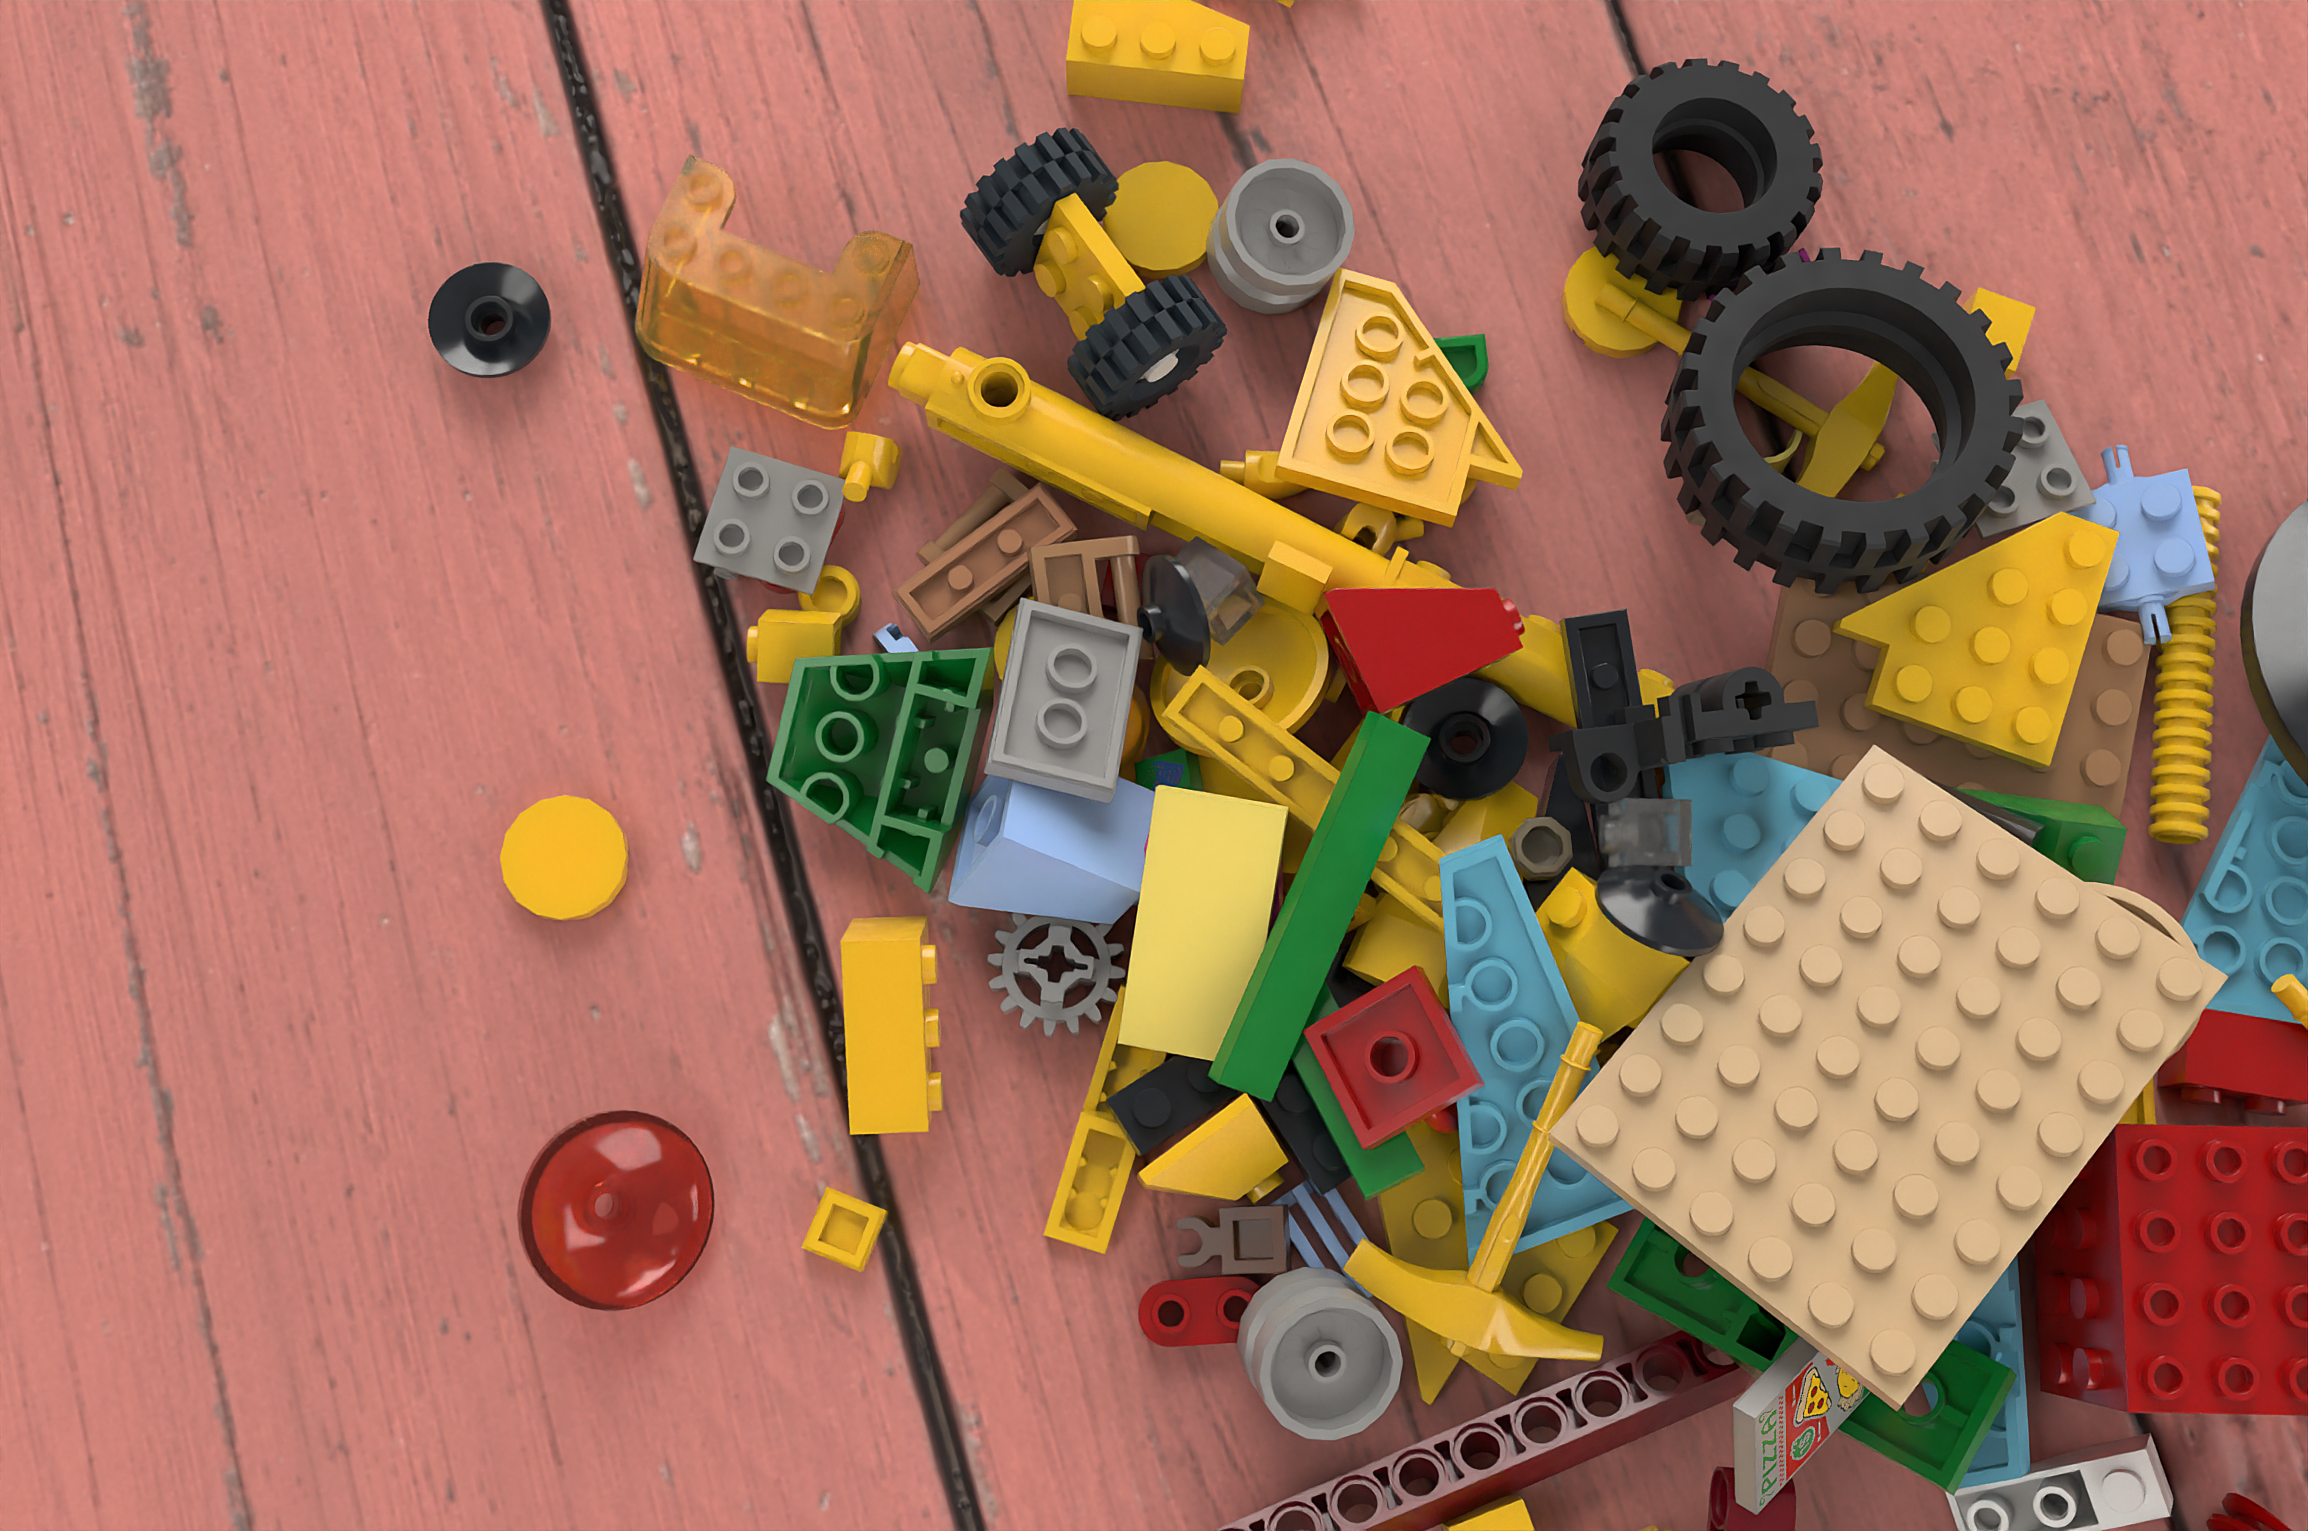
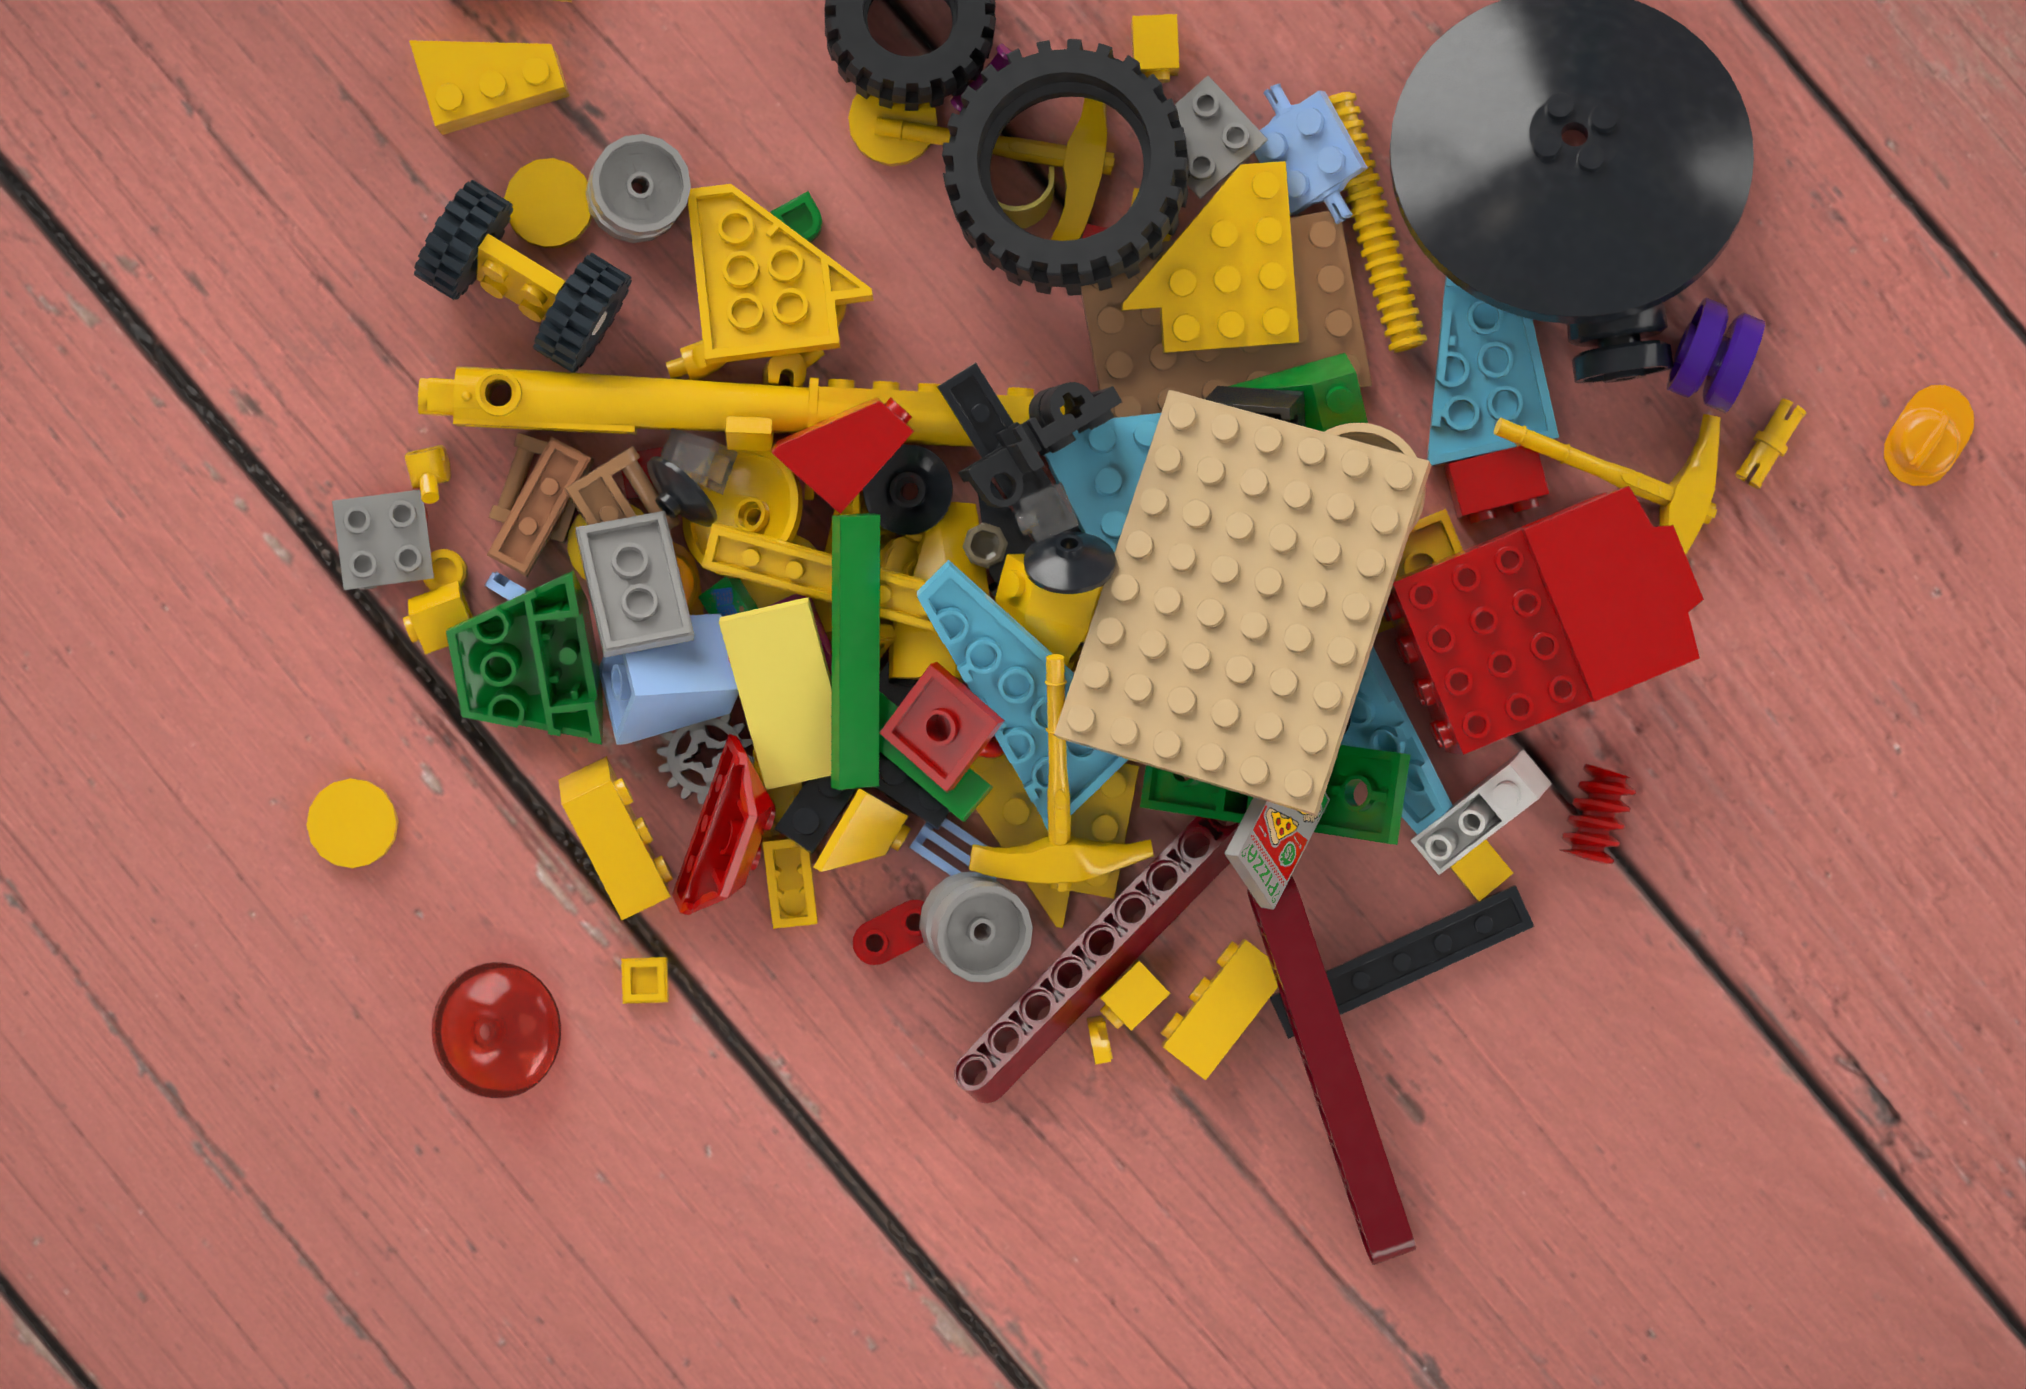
camera: 20 degrees left, 10 degrees up
(476, 299) = (102, 476): black dish -> none
(764, 319) = (310, 402): clear yellow windscreen -> none
(1040, 1078) = (726, 833): none -> red wedge
(1248, 1239) = (902, 875): reddish brown plate -> none

